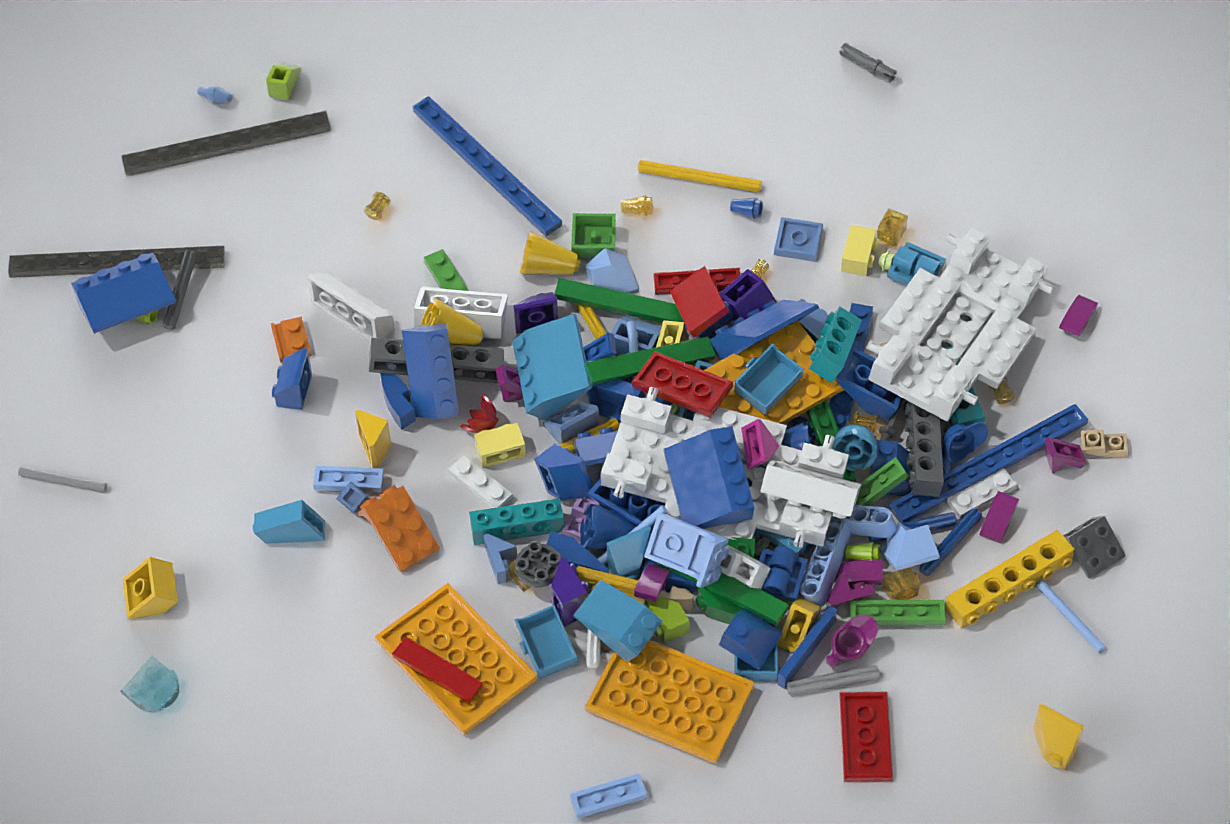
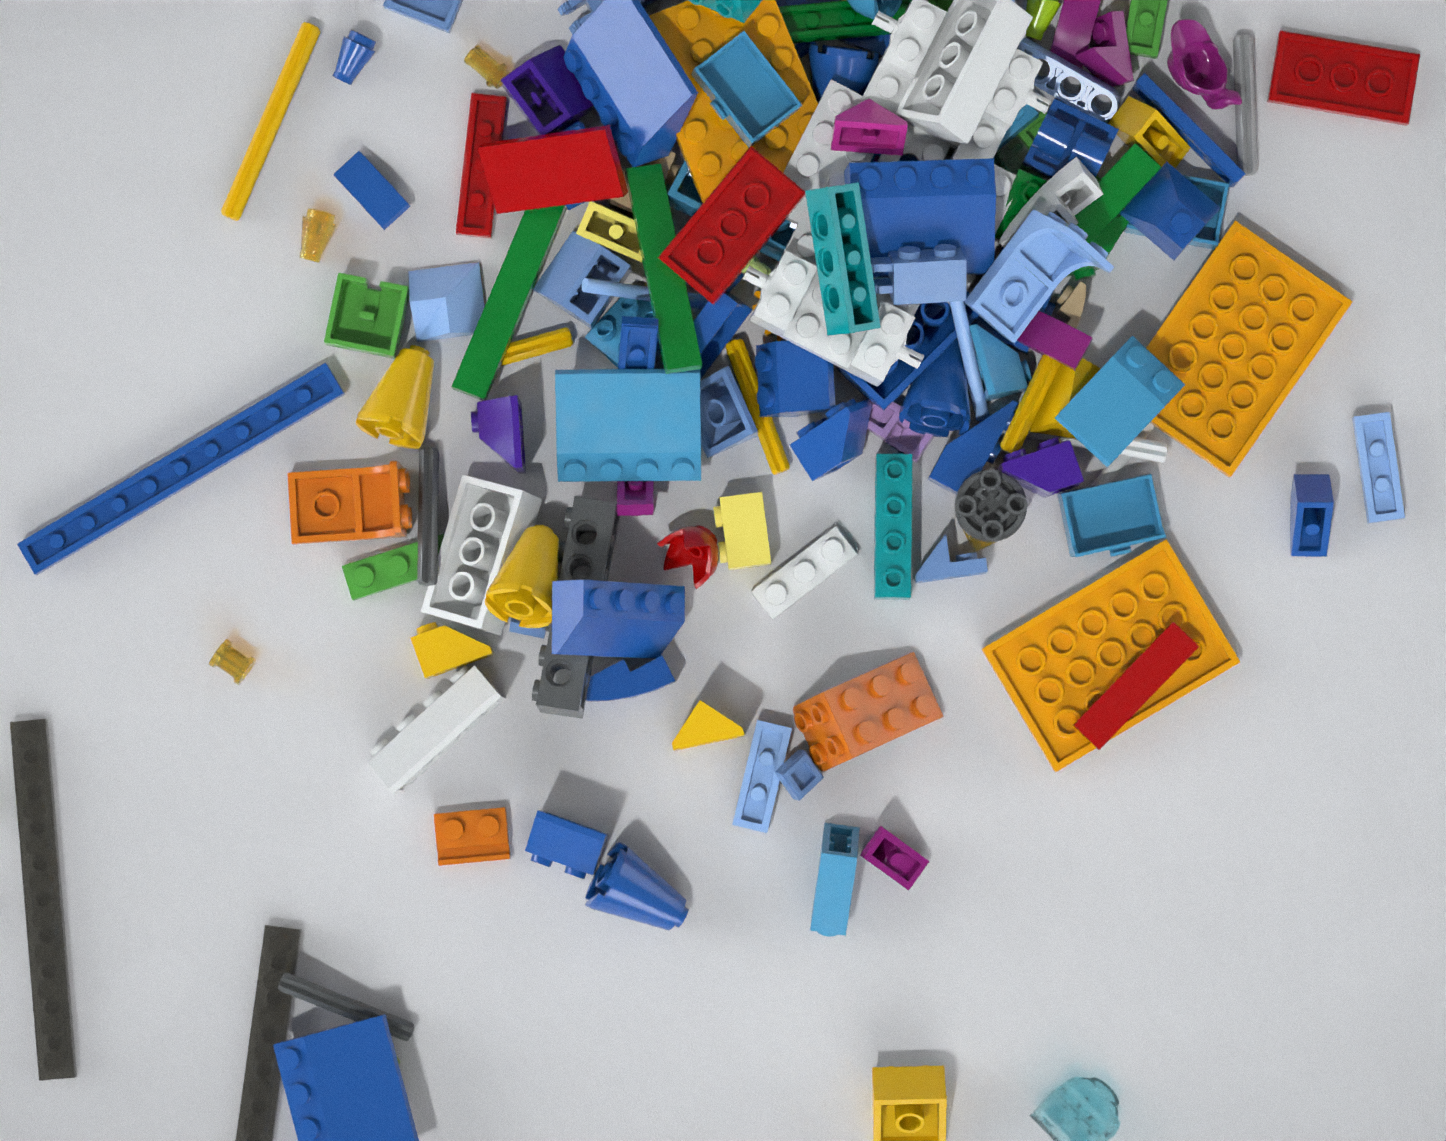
camera: 75 degrees left, 30 degrees up
(267, 418) = (635, 891): none -> blue cone
(306, 553) = (894, 858): none -> magenta slope
(401, 303) = (446, 649): none -> yellow slope
(479, 282) = (428, 516): none -> dark grey axle
(480, 246) = (349, 504): none -> orange bracket
(569, 757) = (1310, 515): none -> blue slope
(668, 228) = (371, 190): none -> blue slope
(671, 432) = (843, 259): none -> teal brick
(672, 482) = (922, 275): none -> medium blue hinge
(674, 619) = (1108, 325): lime slope -> none

